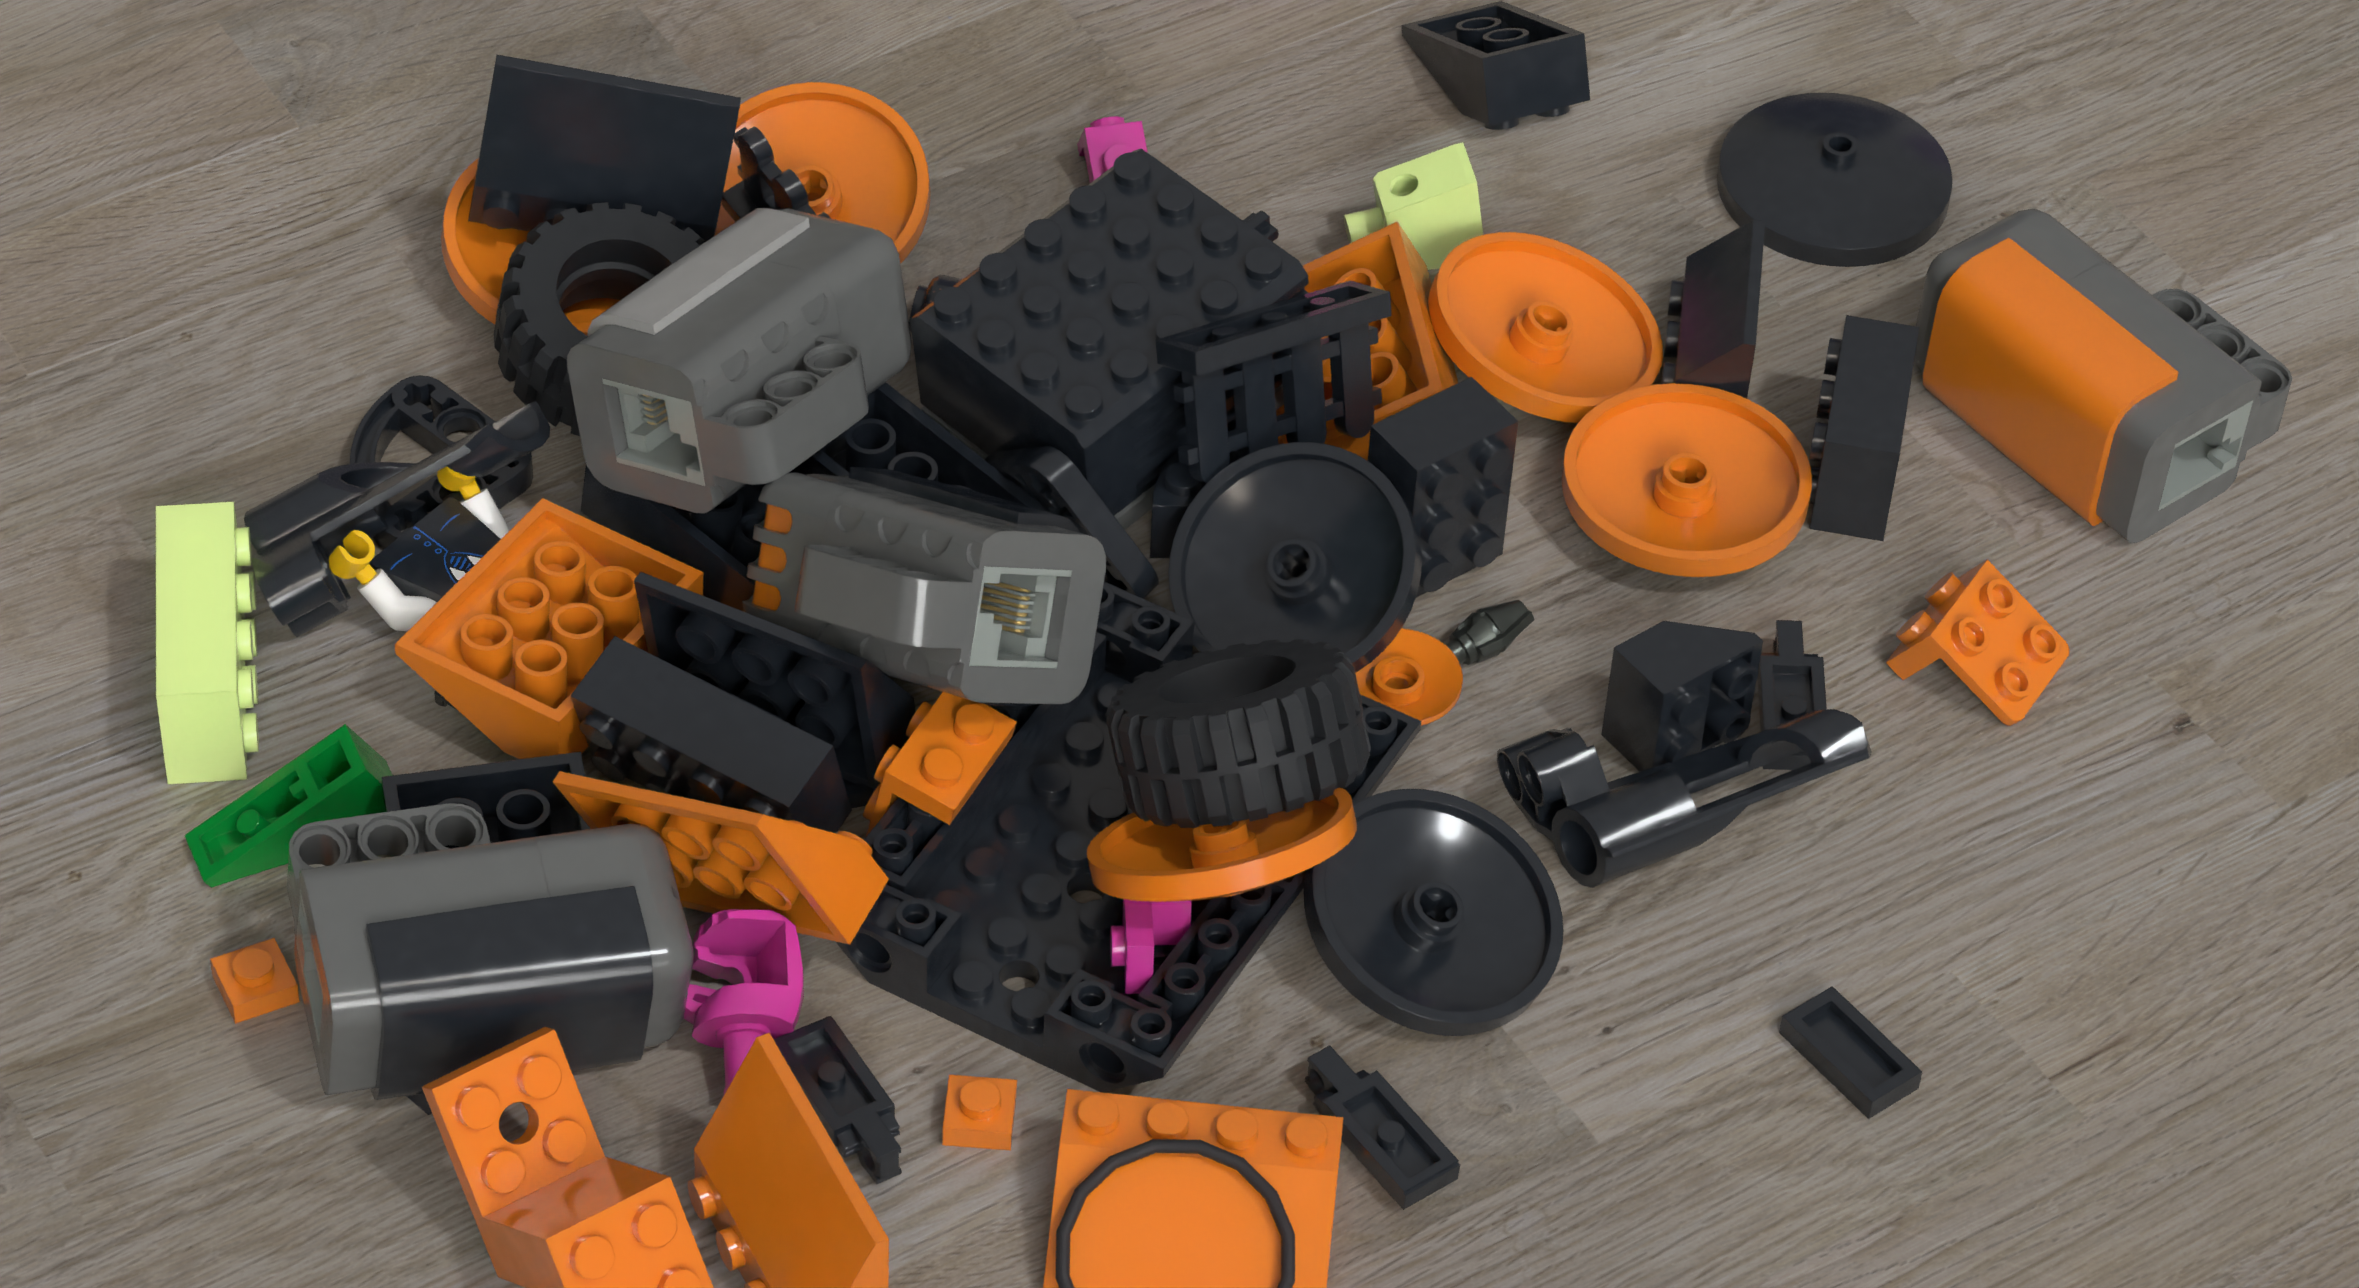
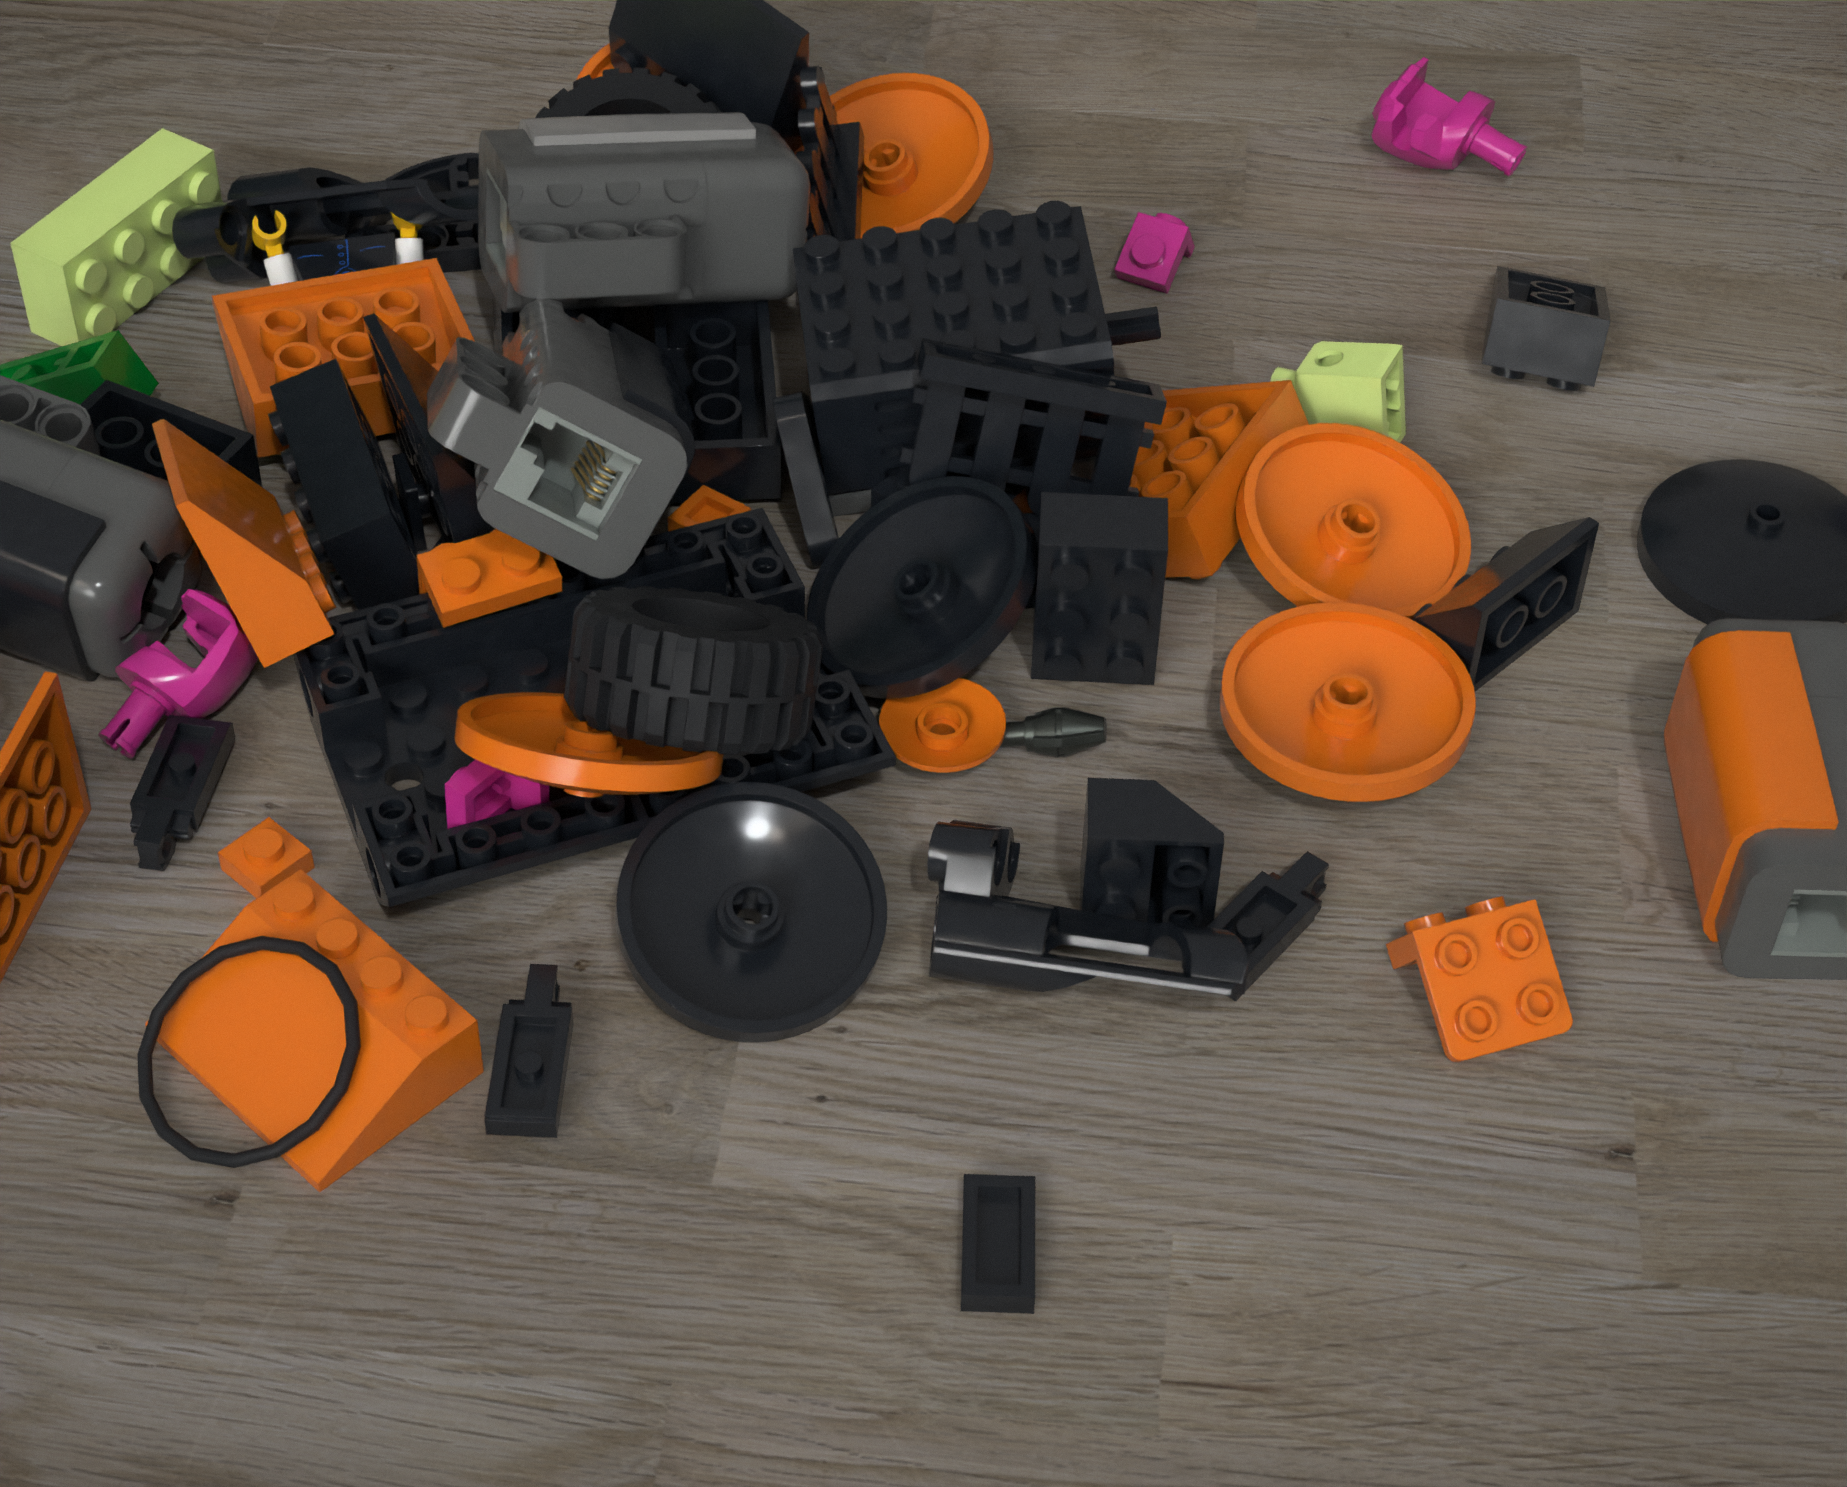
camera: 40 degrees right, 0 degrees up
(1864, 426) = (1544, 737): black brick -> none

